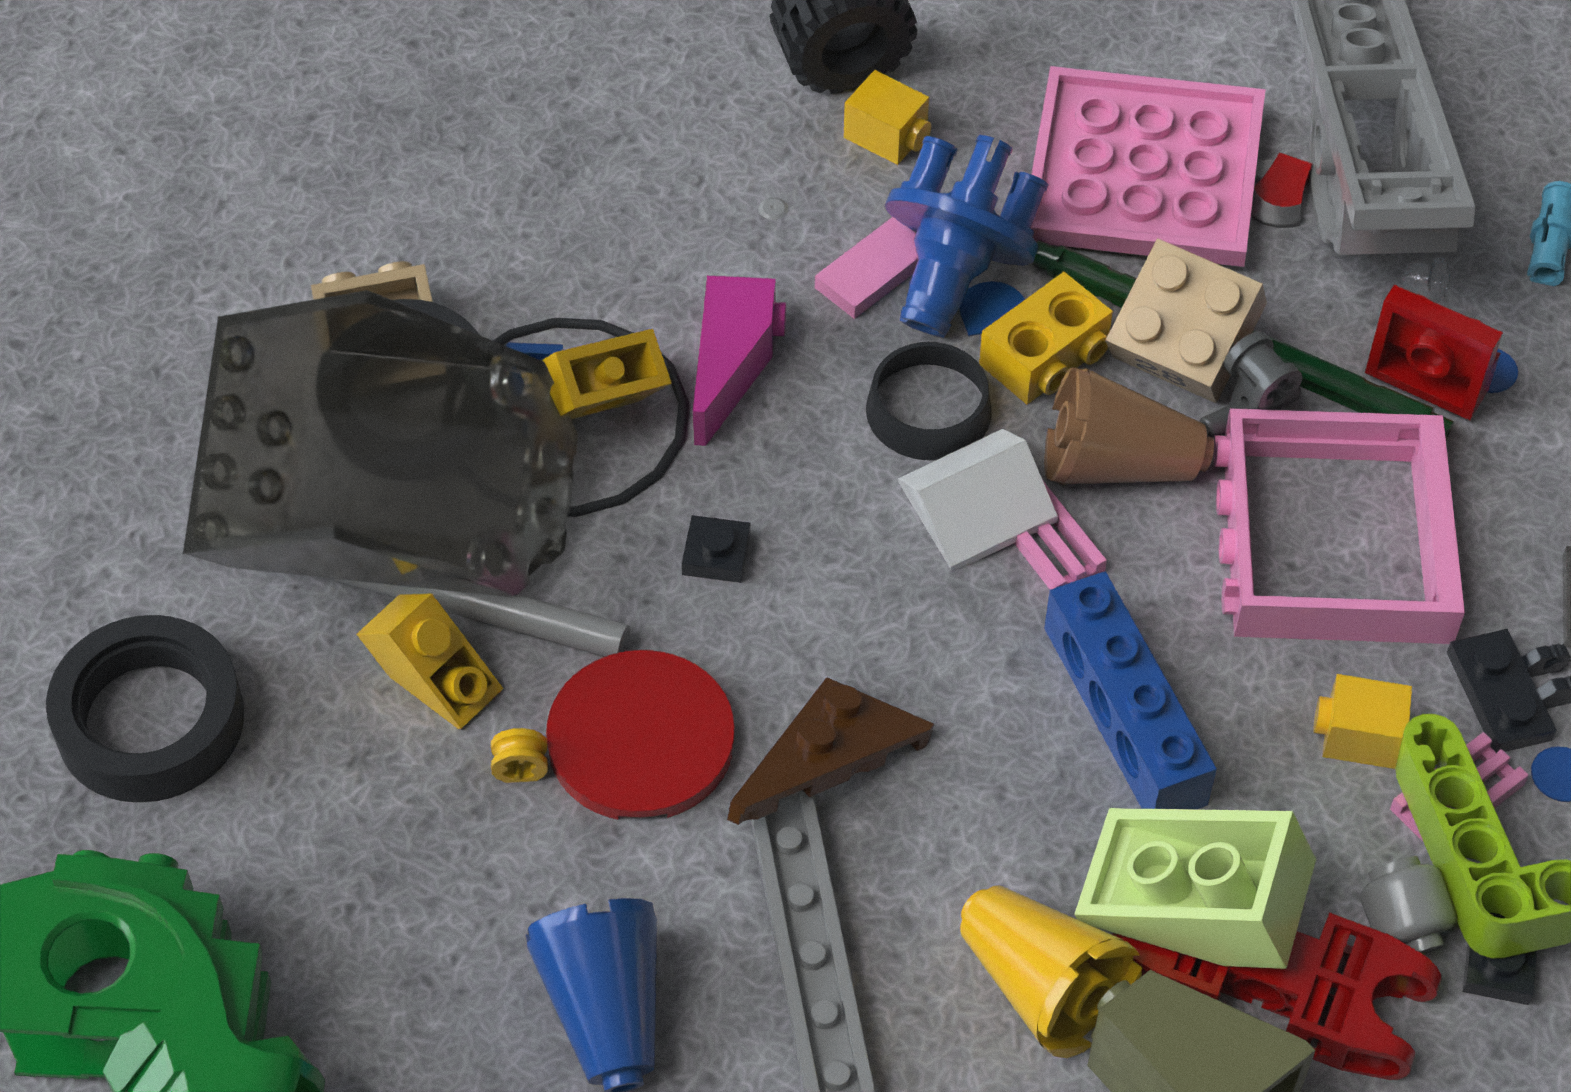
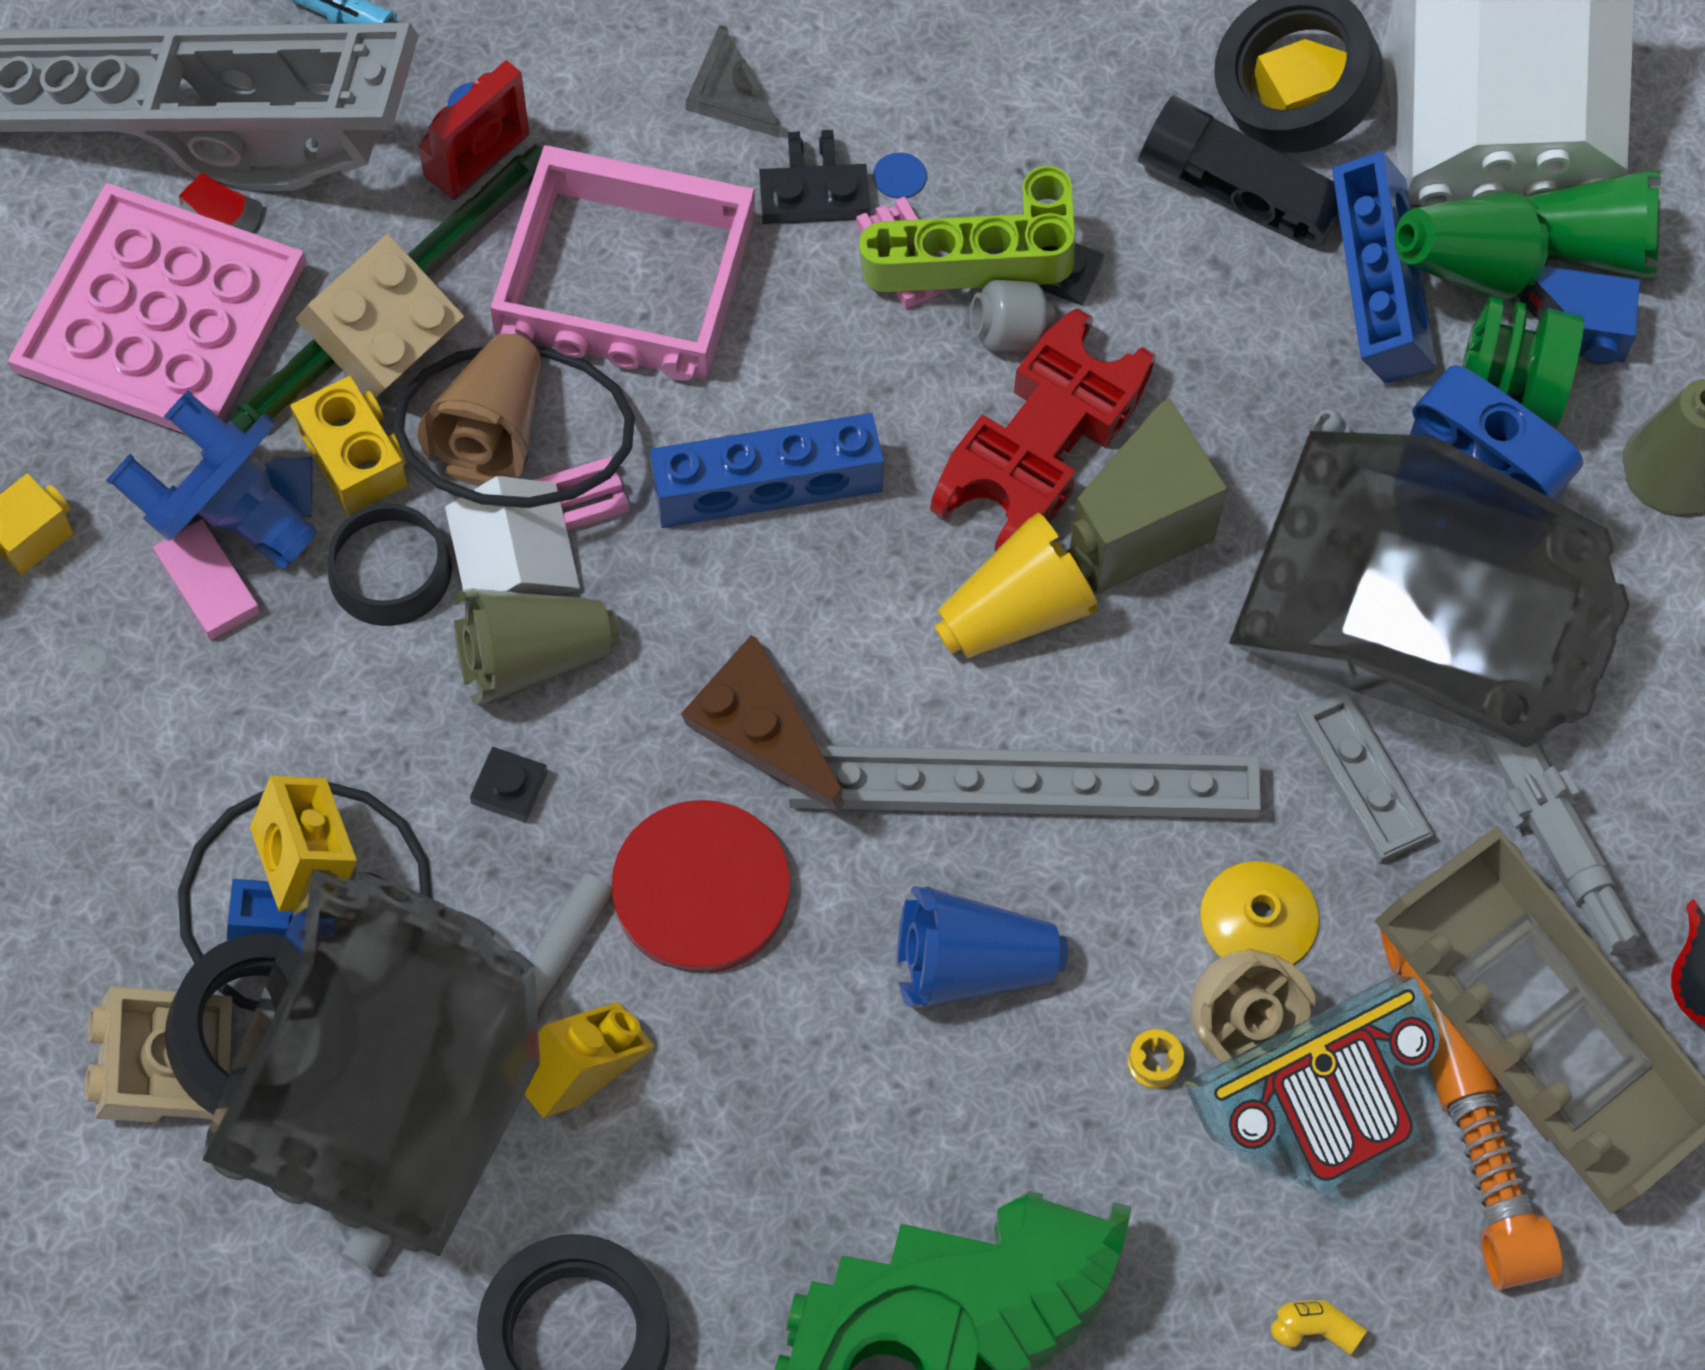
camera: 80 degrees left, 10 degrees up
(519, 755) = (707, 992): yellow bush -> none
(734, 346) = (268, 717): dark pink slope -> none
(865, 517) = (527, 638): none -> olive cone
(1044, 523) = (514, 501): none -> black piece
(1201, 882) = (983, 453): yellowish green slope -> none
(1262, 380) = (465, 277): dark grey piece -> none
(1363, 720) = (830, 298): yellow brick -> none

